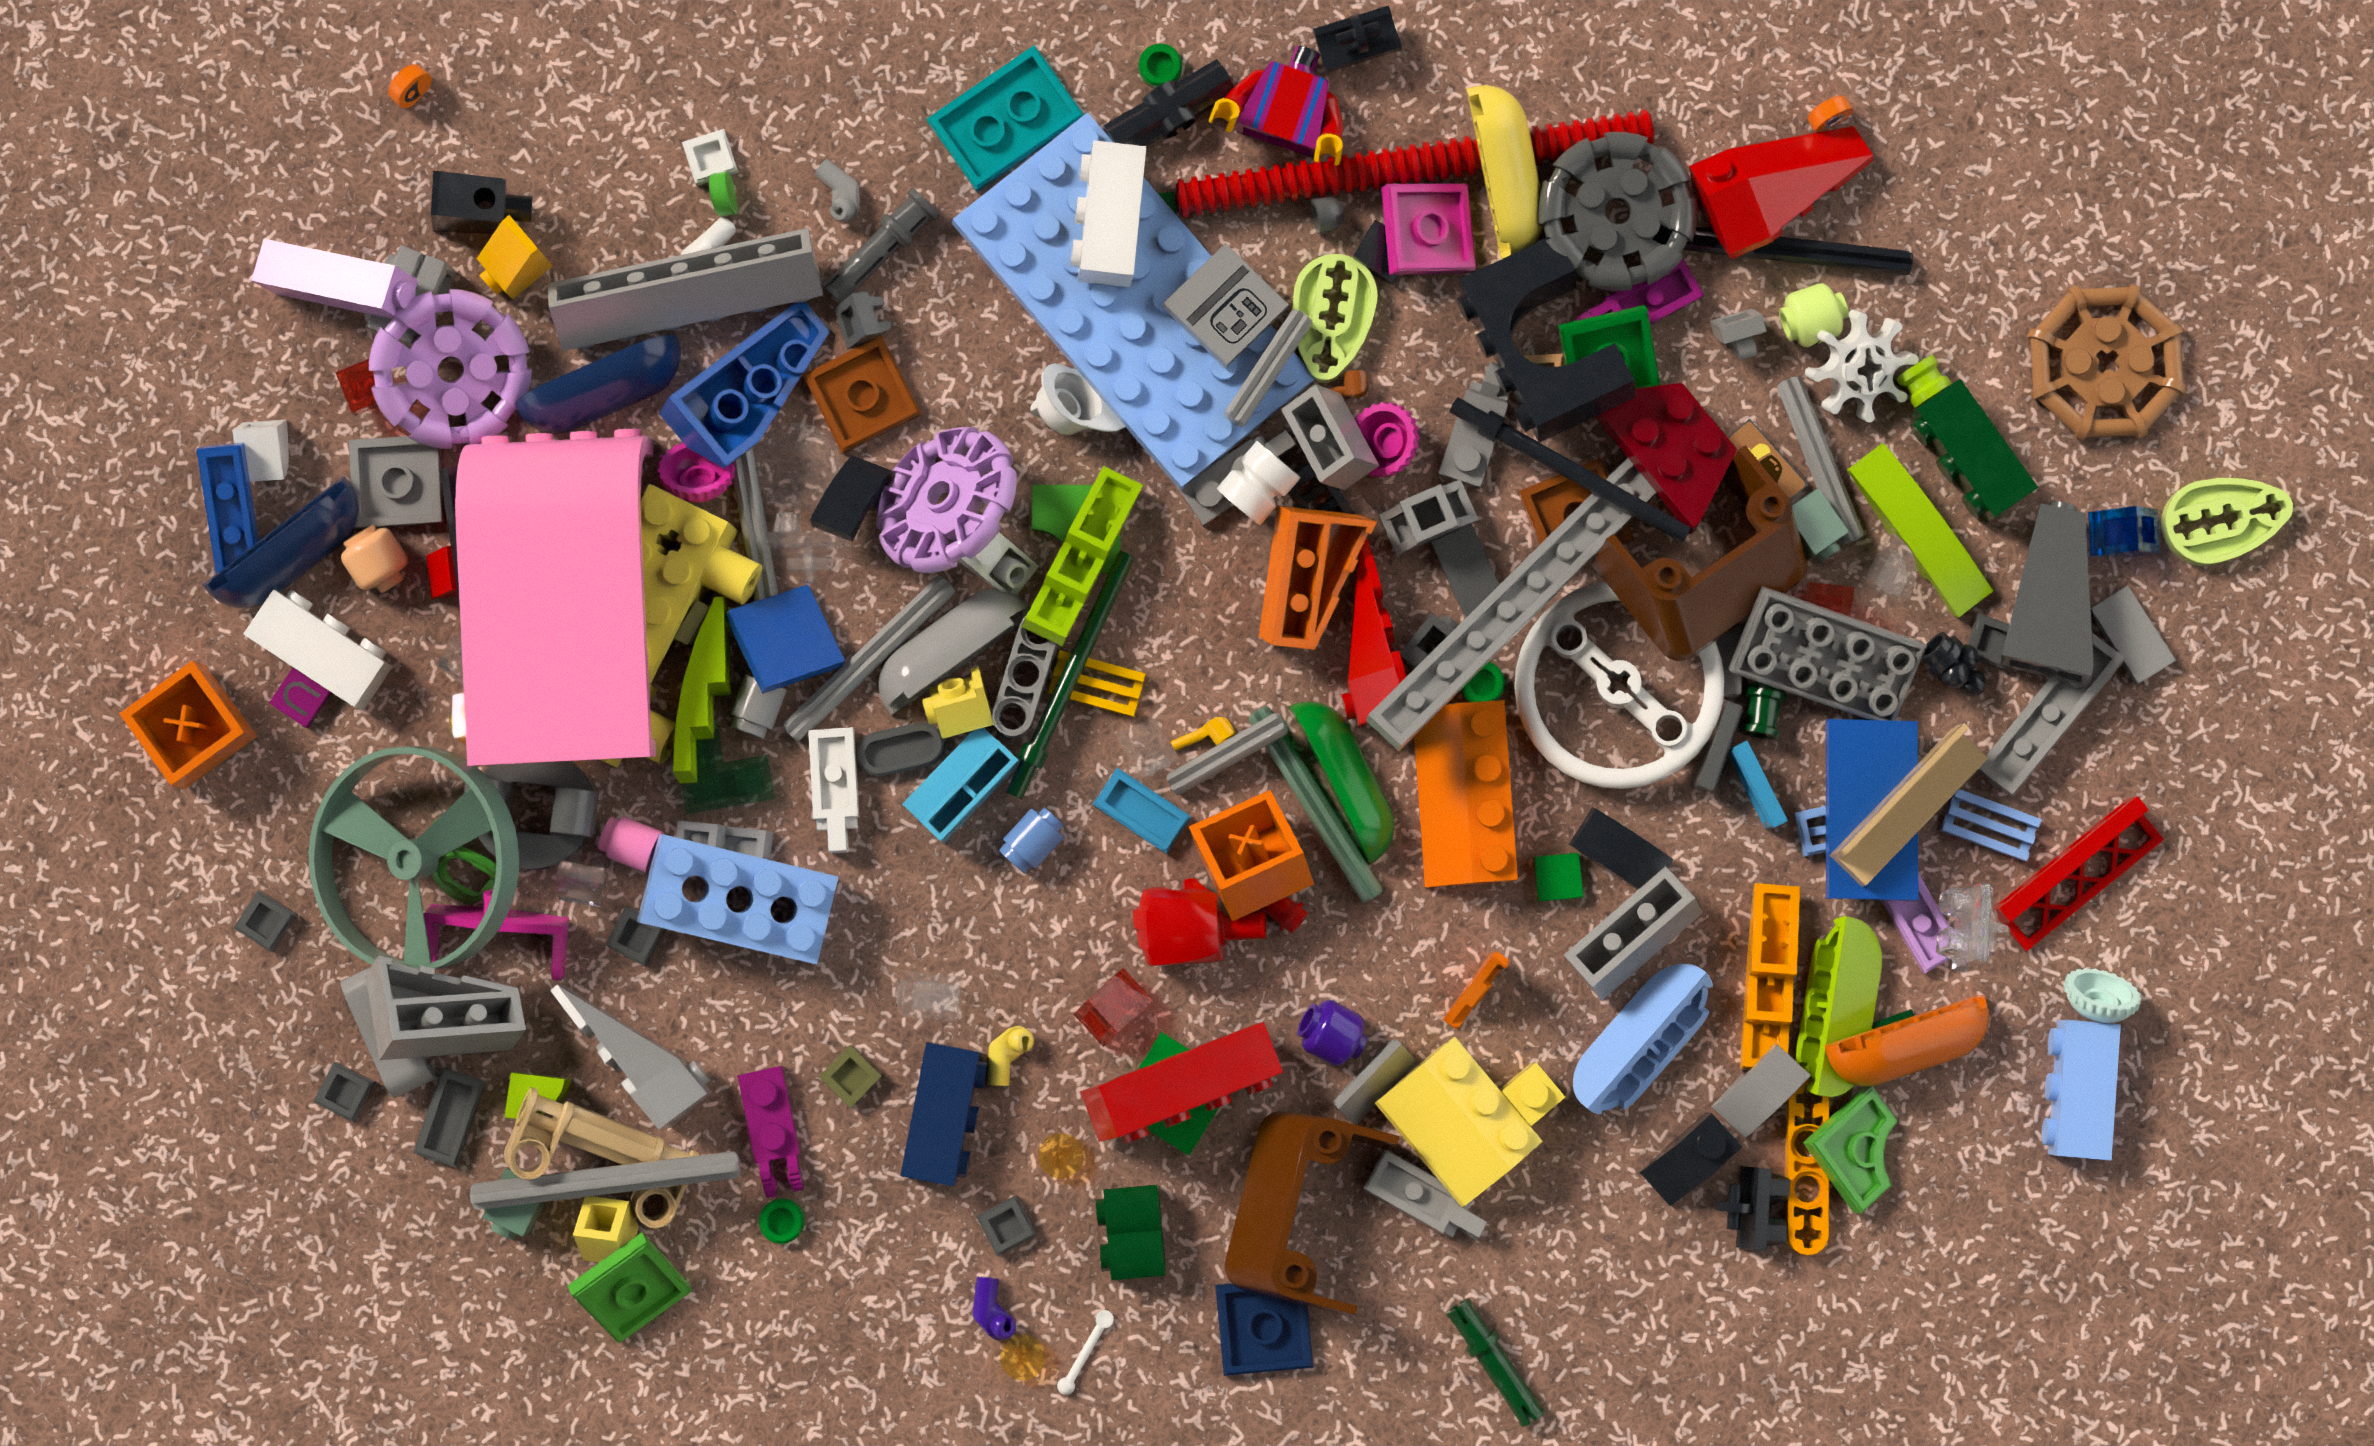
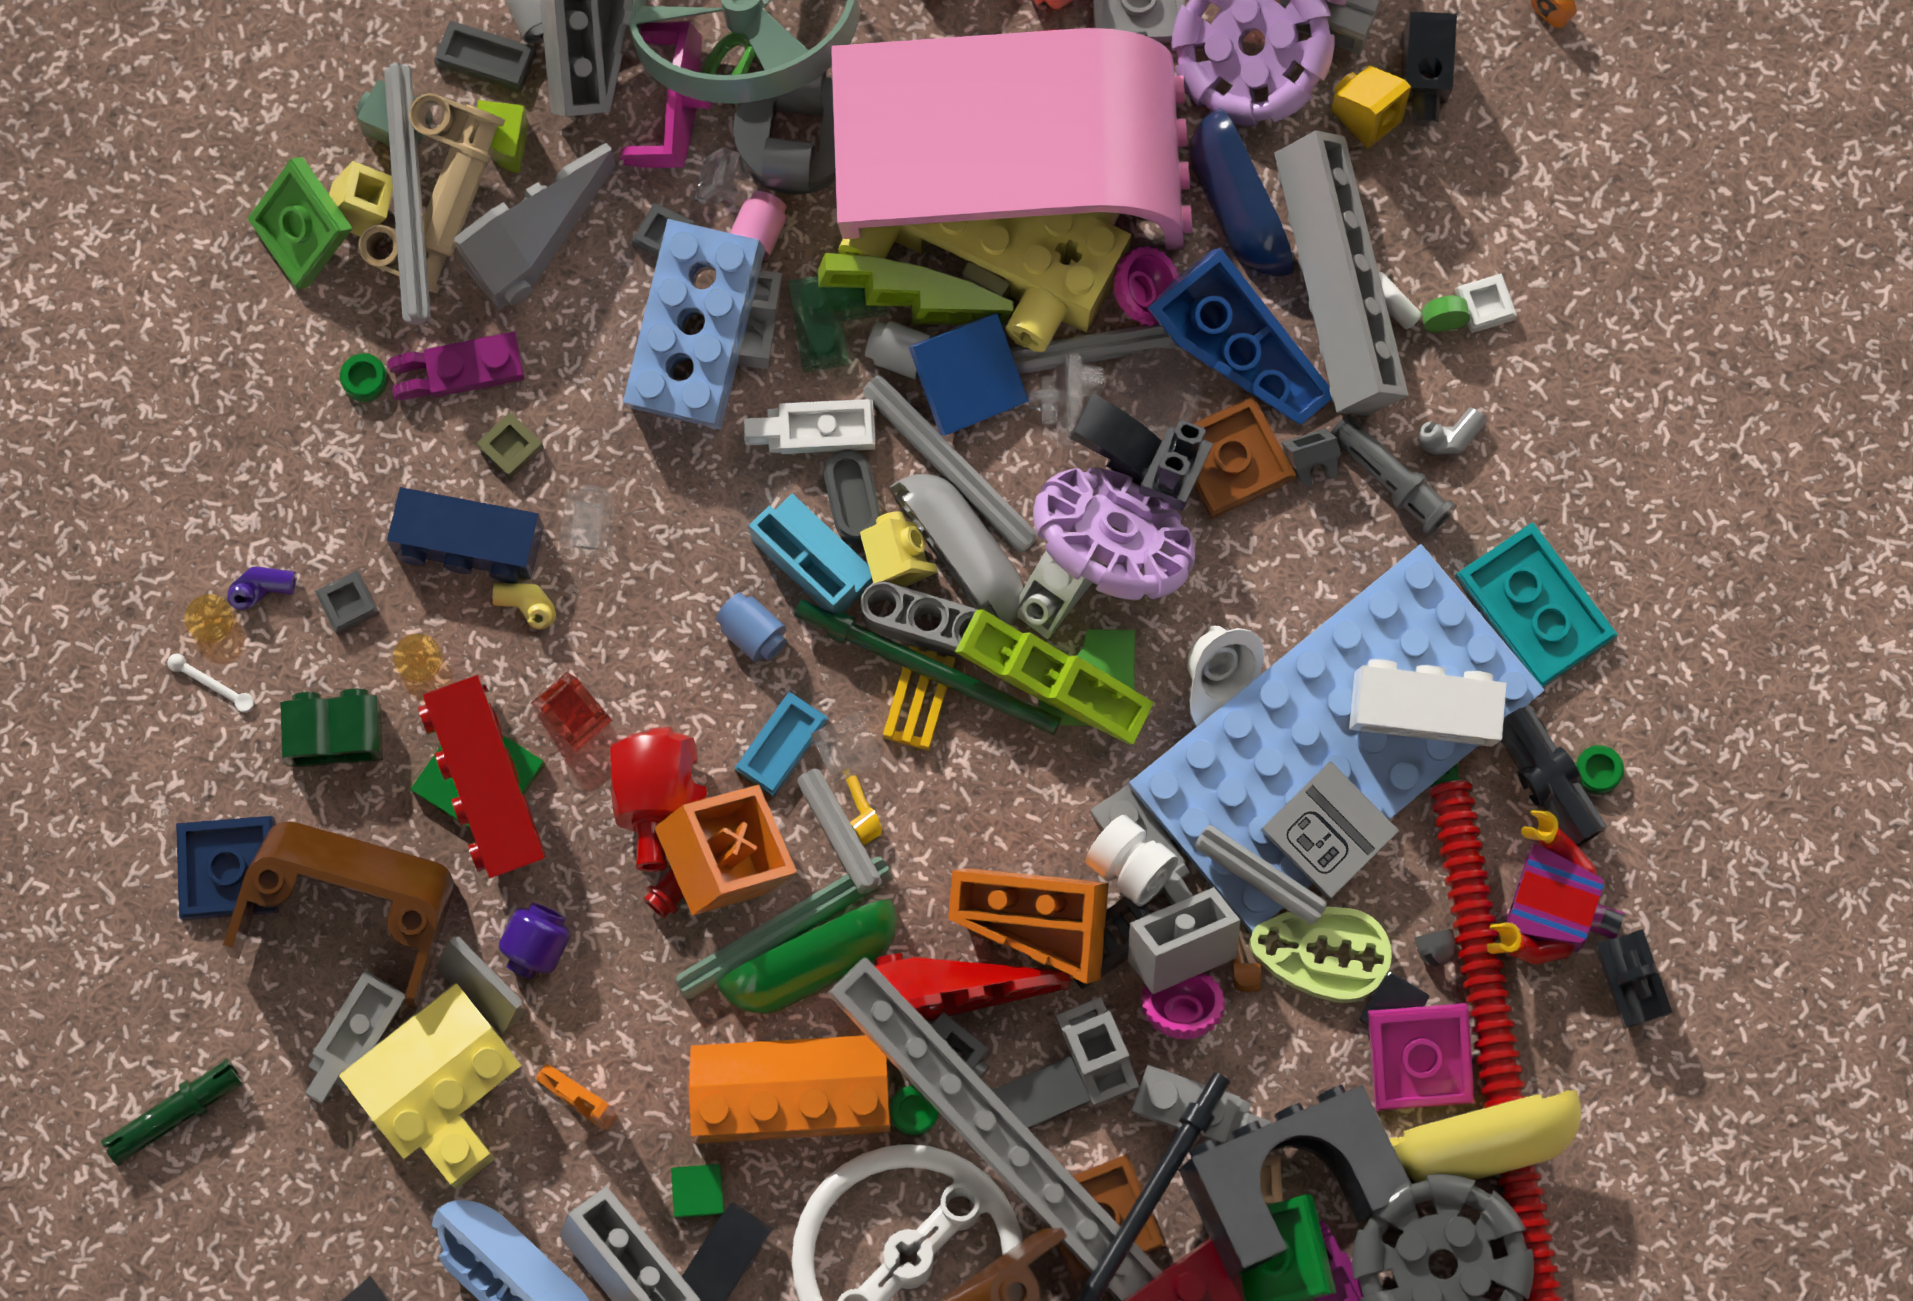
camera: 90 degrees right, 10 degrees down
(878, 442) = (1177, 465): none -> black hips

